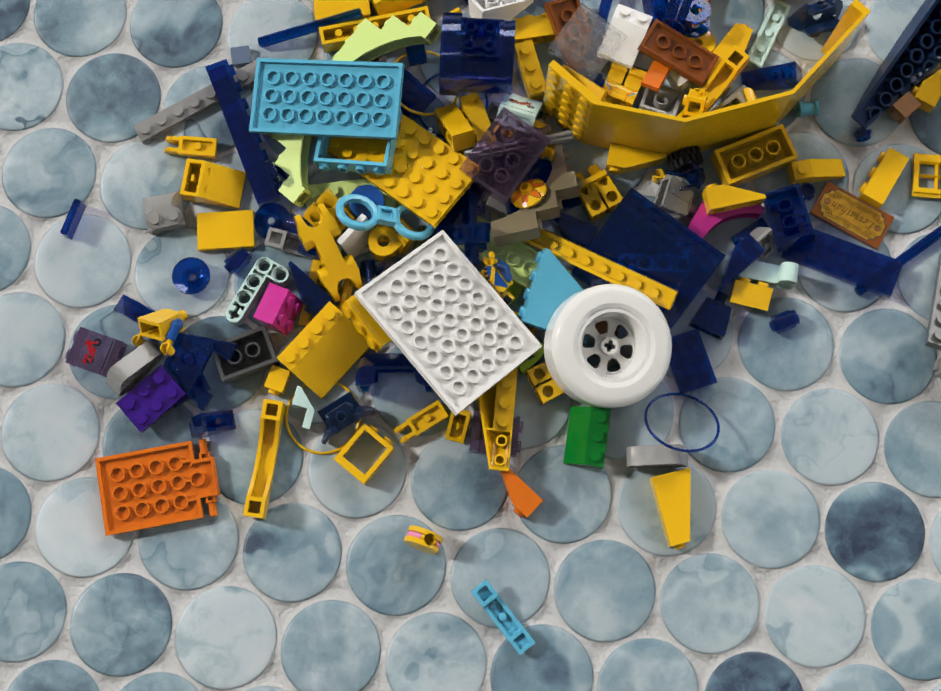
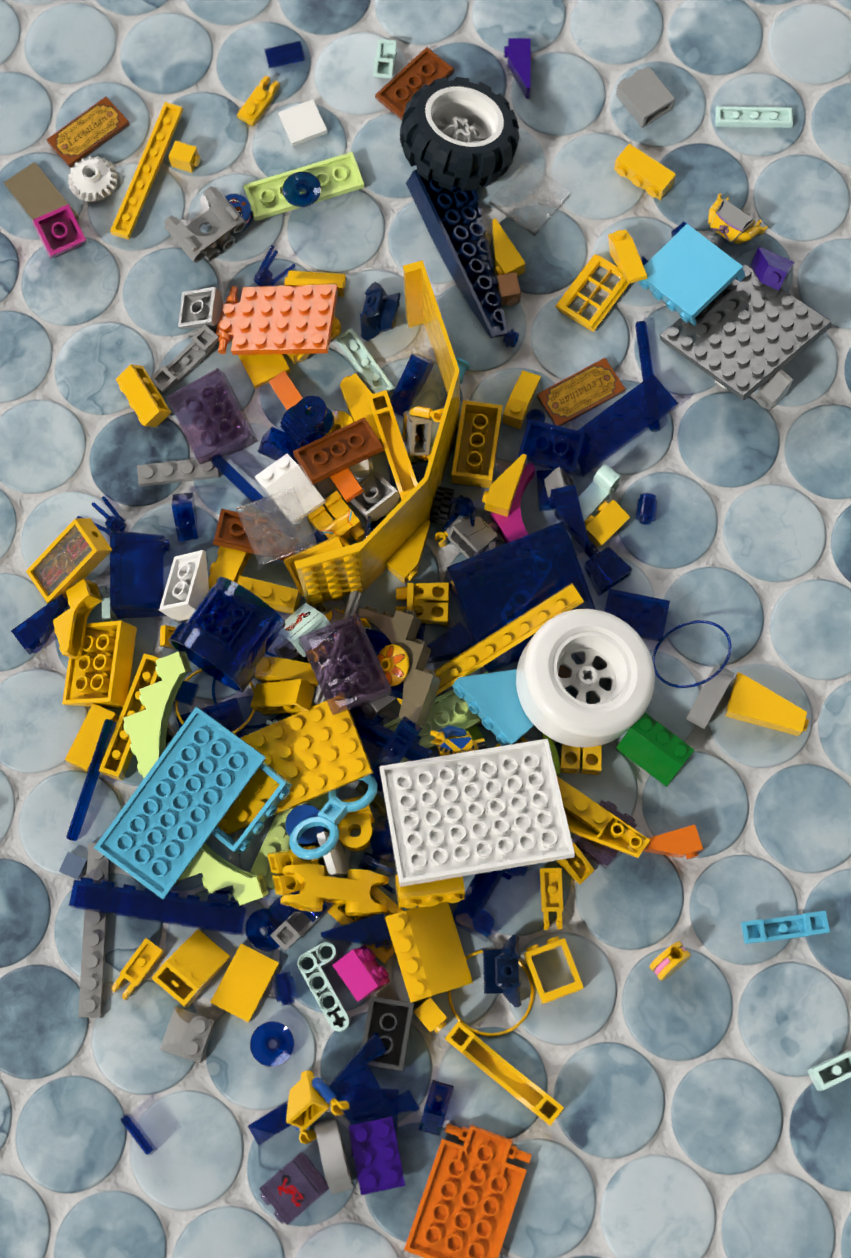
camera: 55 degrees left, 5 degrees down
(301, 401) = (464, 1003): light aqua slope -> none
(696, 102) = (398, 463): yellow brick -> none
(883, 177) = (563, 345): yellow brick -> none

